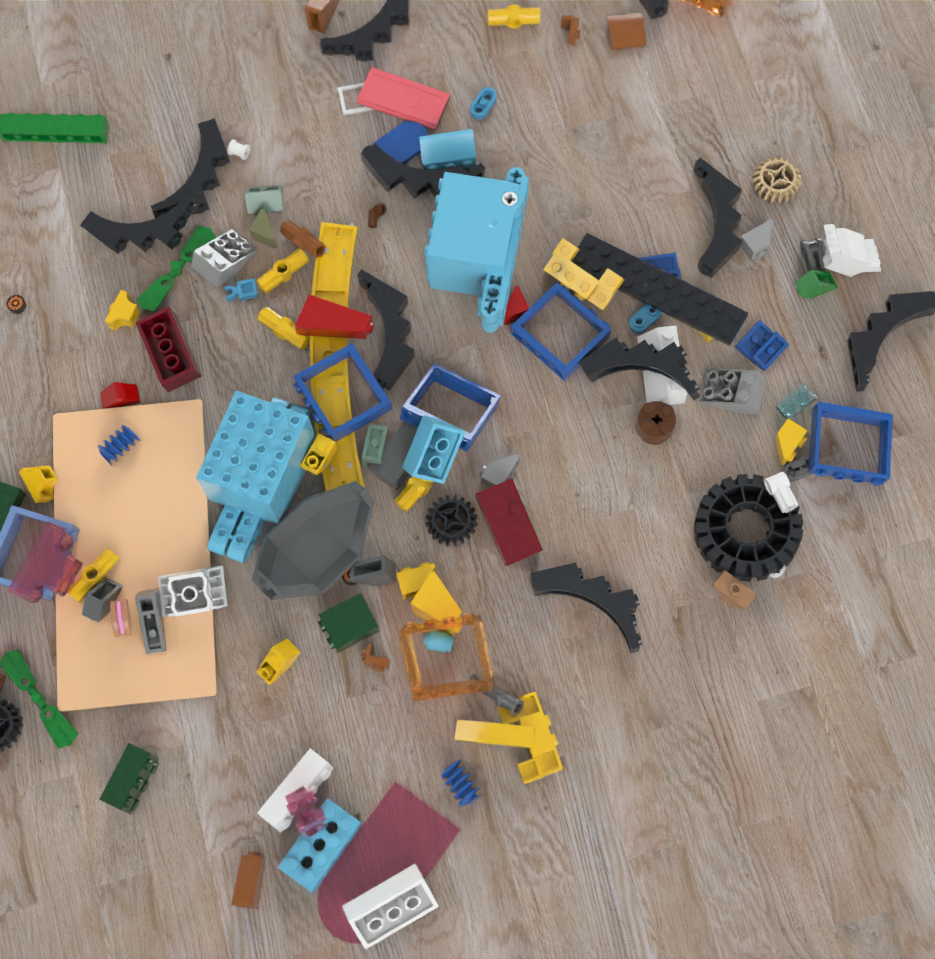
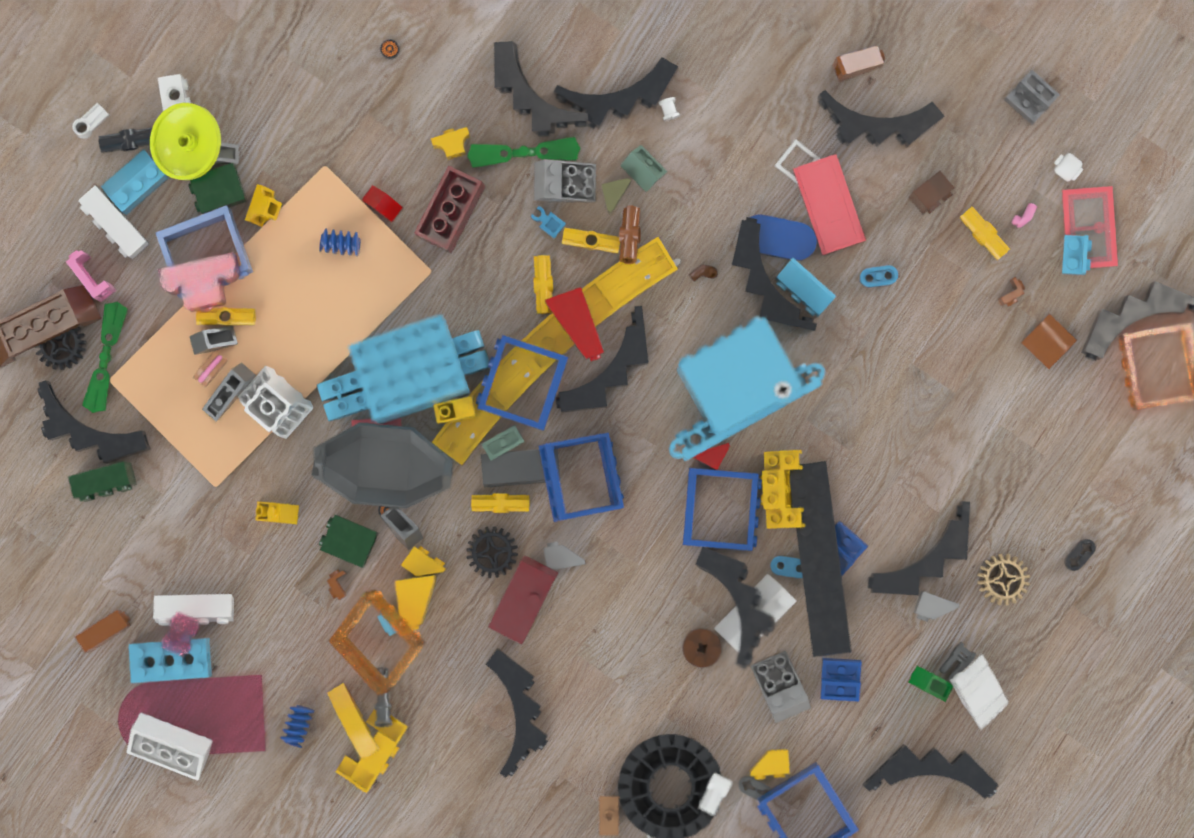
camera: 50 degrees right, 15 degrees up
(83, 767) = (62, 424): none -> black arch
(433, 449) = (529, 497): medium azure slope -> none
(455, 27) = (929, 194): none -> reddish brown brick
(796, 402) = (811, 744): clear light blue plate -> none
(803, 119) = (1076, 551): none -> black beam

